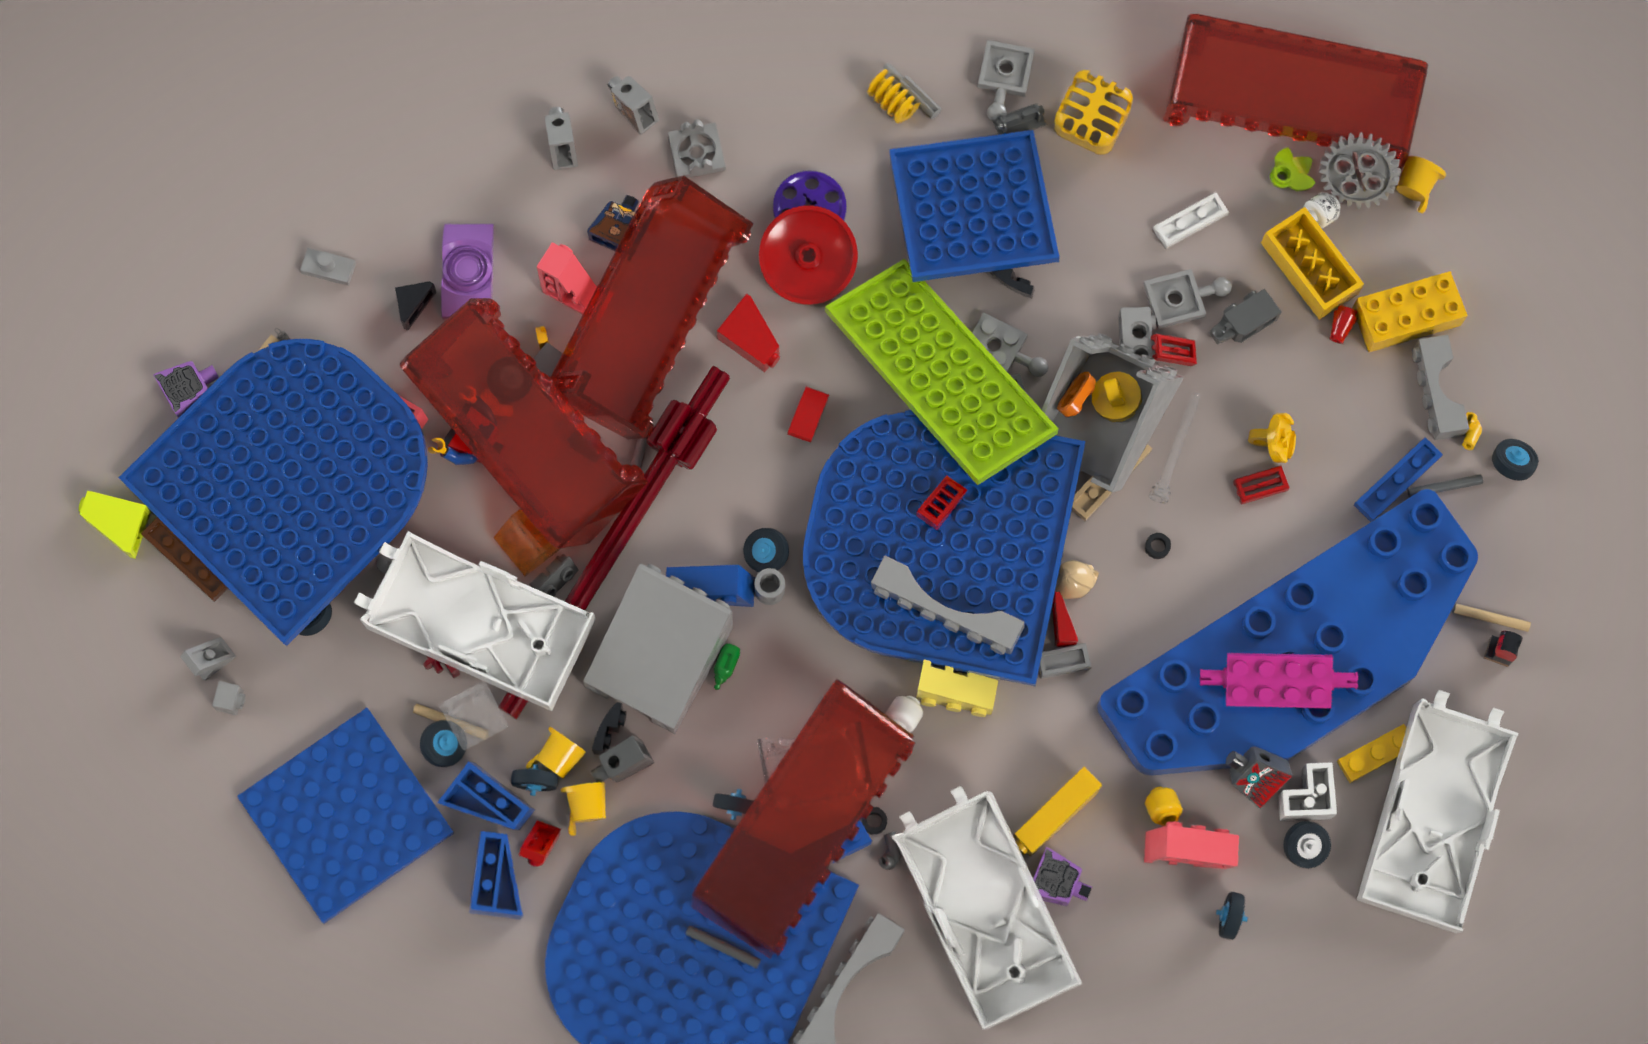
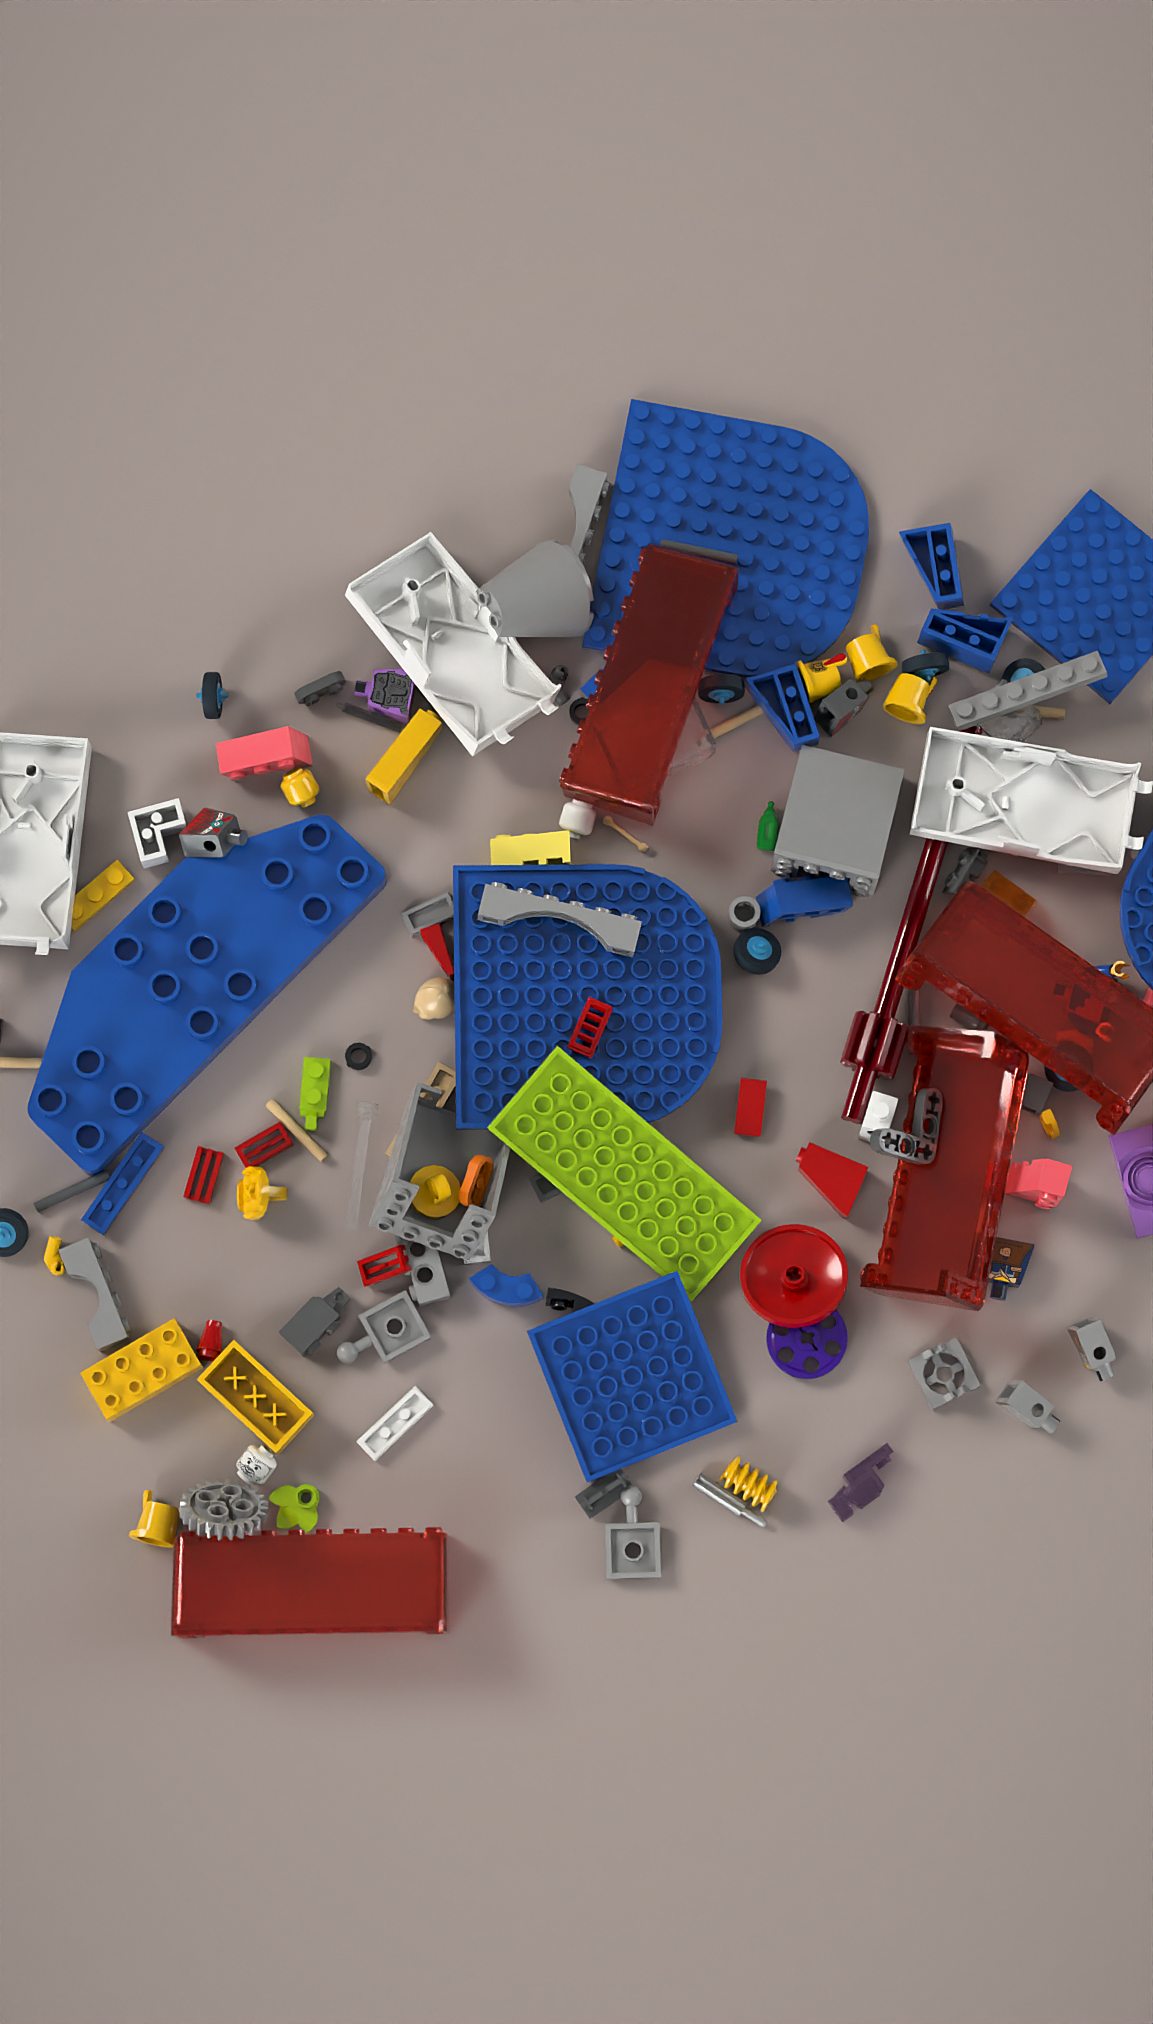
camera: 170 degrees right, 5 degrees up
(444, 725) = (1028, 691): none -> light grey plate
(539, 843) = (902, 607): red tile -> none
(612, 721) = (865, 740): black slope -> none
(638, 793) = (821, 676): none -> yellow hat
(660, 342) = (918, 1139): none -> dark grey beam
(678, 774) = (785, 705): none -> blue wedge
(691, 375) = (878, 1114): none -> white torso
(724, 777) = (736, 721): none -> tan bar
(793, 77) = (862, 1484): none -> clear purple plate
(848, 676) = (608, 821): none -> tan hinge
(893, 939) = (540, 594): none -> light grey cone
(1011, 343) = (557, 1238): light grey plate -> none
(1068, 305) = (505, 1289): none -> blue brick
(1072, 858) = (378, 720): none -> dark grey piece
(1091, 112) = (526, 1513): yellow piece -> none
(1134, 898) = (329, 684): none -> dark grey plate
(1205, 523) = (314, 1090): none -> lime hinge
(1228, 492) = (296, 1130): none -> tan bar
(1279, 680) = (209, 922): dark pink plate -> none
(1307, 844) = (150, 784): black wheel -> none
(1330, 454) = (209, 1153): none -> red tile

